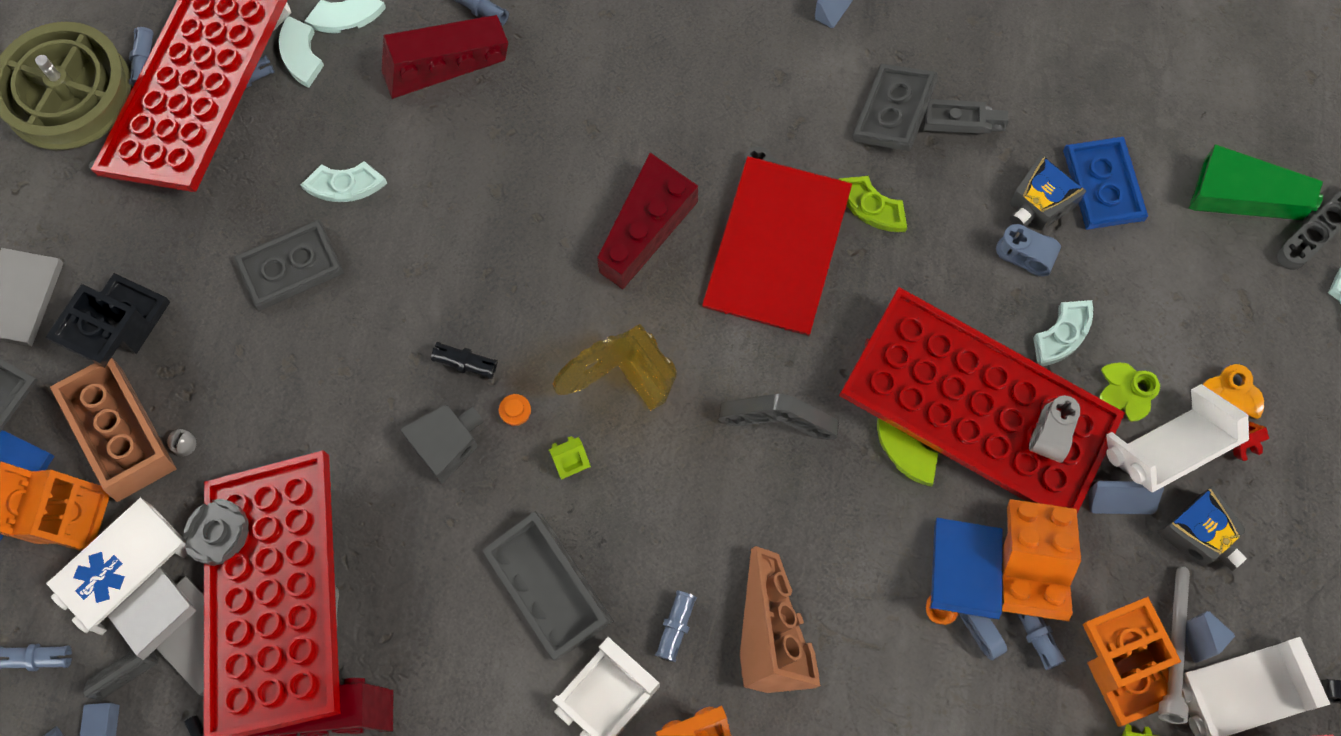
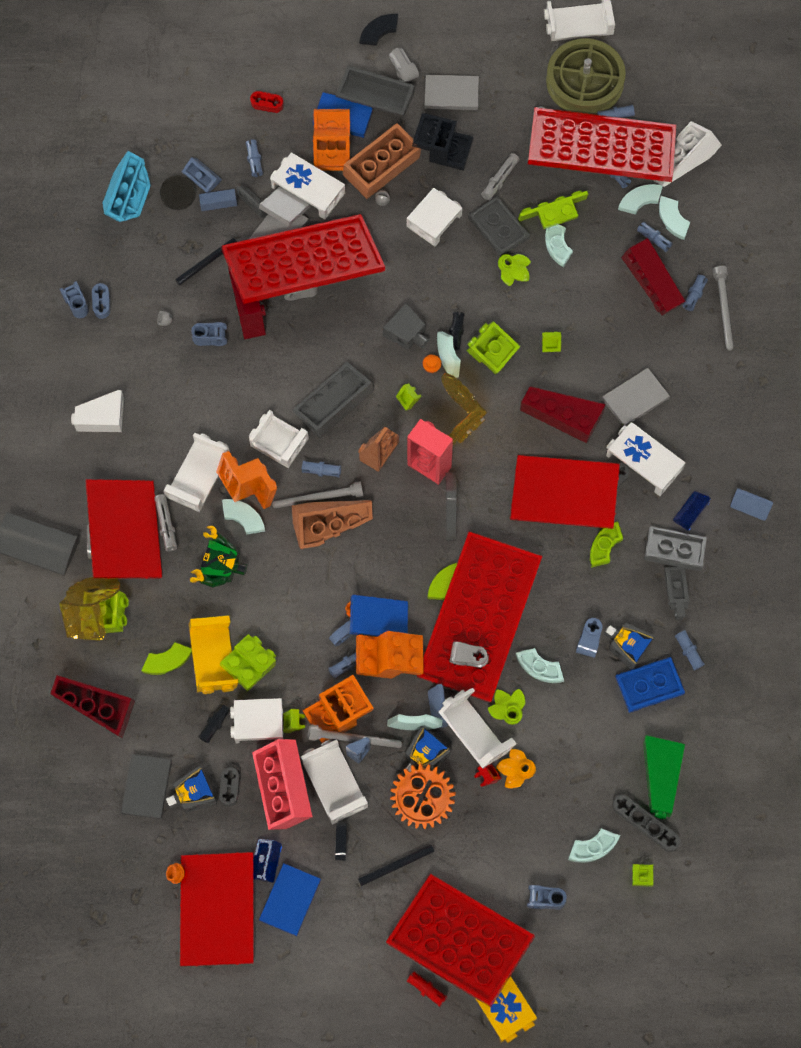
camera: 80 degrees right, 0 degrees up
(207, 253) = (500, 176): none -> light grey pin
(224, 536) = (332, 230): dark grey tile -> none
(244, 360) = (433, 216): none -> white panel
(292, 171) = (556, 212): none -> lime bracket
(370, 43) = (654, 236): none -> sand blue pin
(375, 252) = (516, 270): none -> lime plate
(505, 380) = (447, 354): none -> light aqua tile
(507, 308) = (492, 347): none -> lime plate
(517, 218) = (551, 342): none -> lime tile
(636, 118) = (635, 397): none -> light grey tile
(664, 515) = (378, 448): none -> nougat wedge
(696, 424) = (429, 451): none -> coral brick
(724, 573) = (354, 490): none -> light grey piece
(741, 118) = (646, 457): none -> white panel
(835, 74) = (691, 510): none -> clear blue slope
(1058, 118) = (689, 650): none -> sand blue pin
(1154, 539) = (414, 722): none -> light aqua tile
(1284, 545) = (406, 788): none -> orange gear

